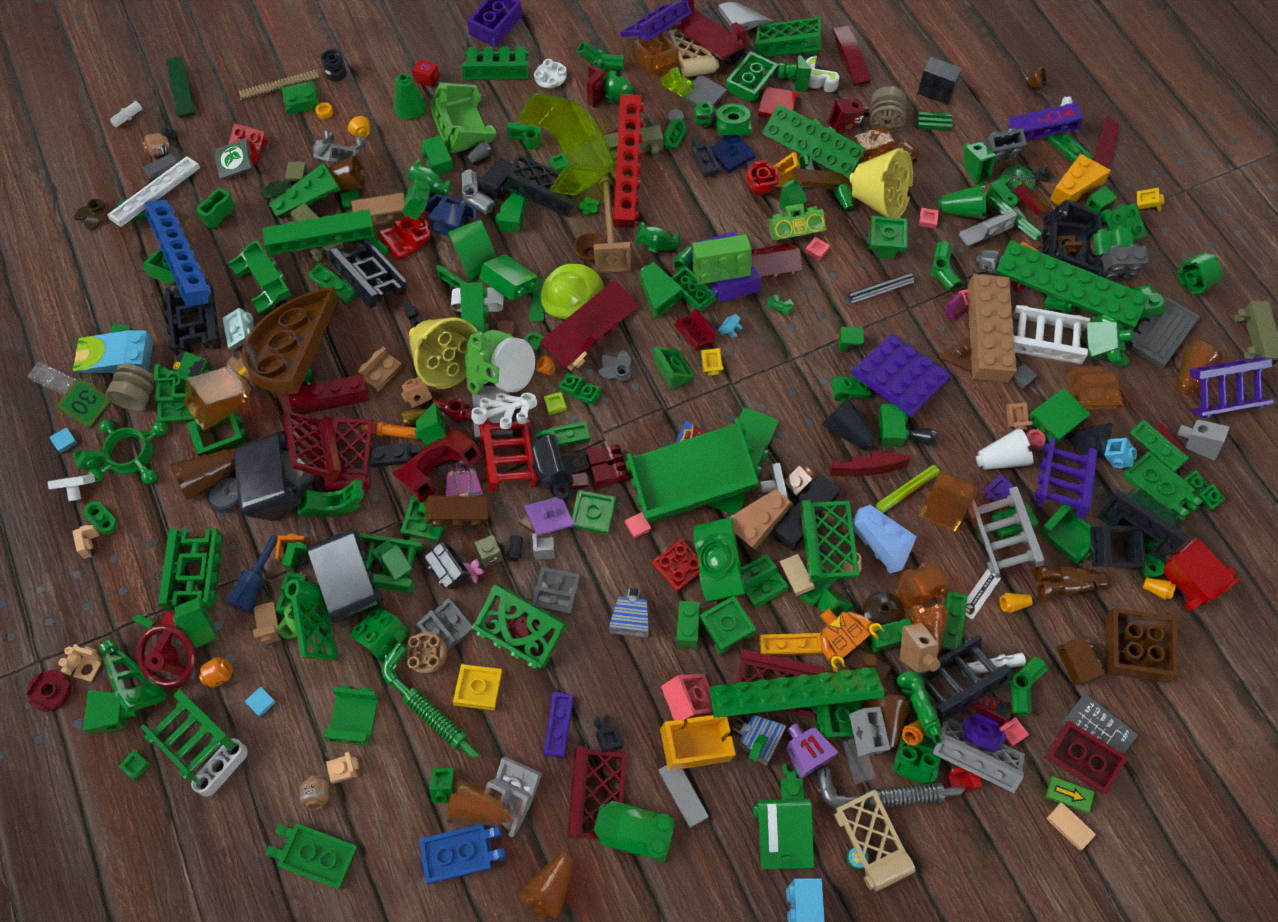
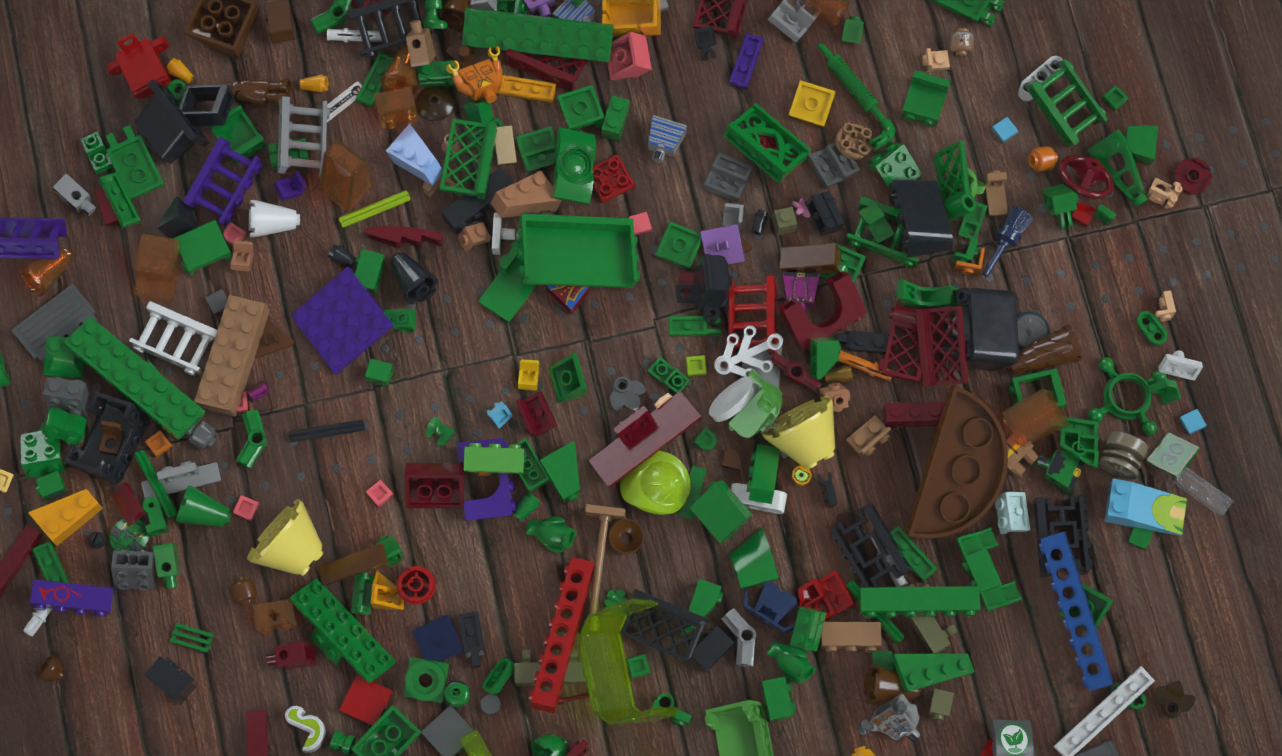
camera: 170 degrees left, 10 degrees up
(175, 568) = (1078, 262): green fence -> none
(216, 208) = (1036, 667): green brick -> none
(274, 189) = (967, 687): clear green plate -> none
(450, 277) = (778, 532): green slope -> none
(480, 152) = (727, 695): dark grey cone -> none
(545, 365) = (701, 405): orange tile -> none
(598, 462) = (664, 278): dark red legs -> none
(791, 226) = (394, 519): bright green piece -> none
(802, 75) = (330, 722): green slope -> none
(844, 195) = (329, 550): green cone -> none
(887, 236) = (301, 483): green panel -> none
(888, 108) = (244, 650): dark tan wheel -> none
(1108, 340) = (122, 312): torso -> none
(1120, 453) = (160, 196): medium azure brick -> none

